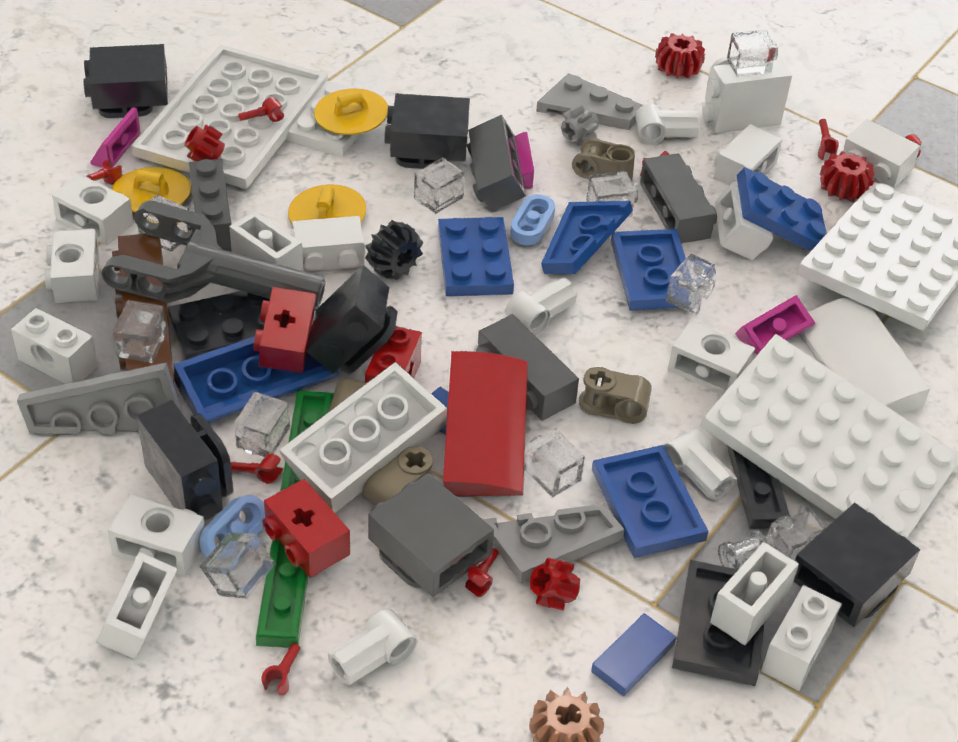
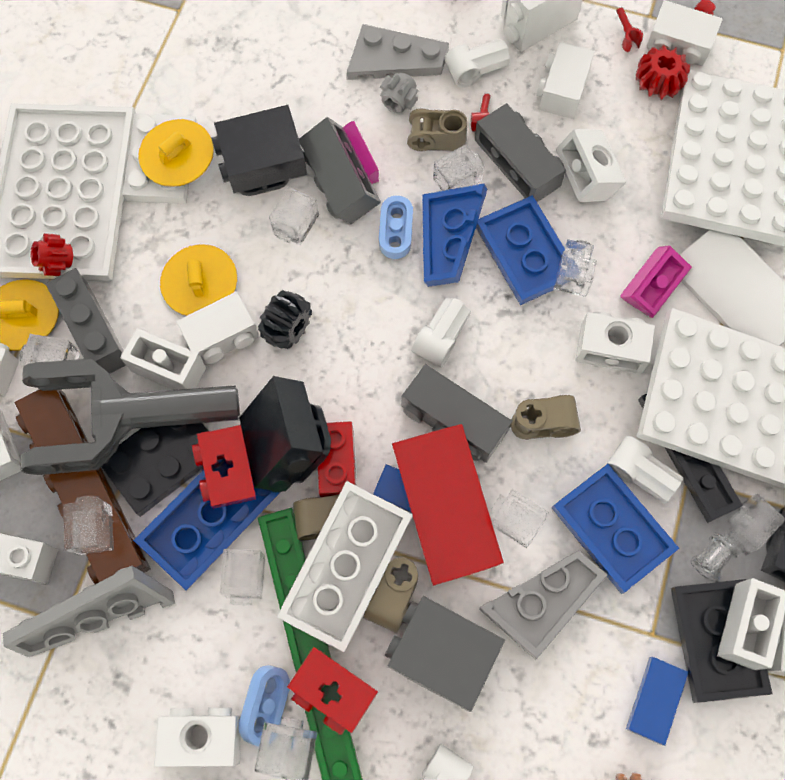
camera: 15 degrees left, 25 degrees up
(185, 459) = (192, 660): black brick -> none
(265, 471) = (265, 619): red hand -> none
(270, 107) = (95, 177): red hand -> none
(475, 256) = (358, 289): blue plate -> none
(478, 579) = (499, 673): red hand -> none
(554, 584) = (569, 660): red gear -> none
(780, 209) = (622, 143): blue plate -> none

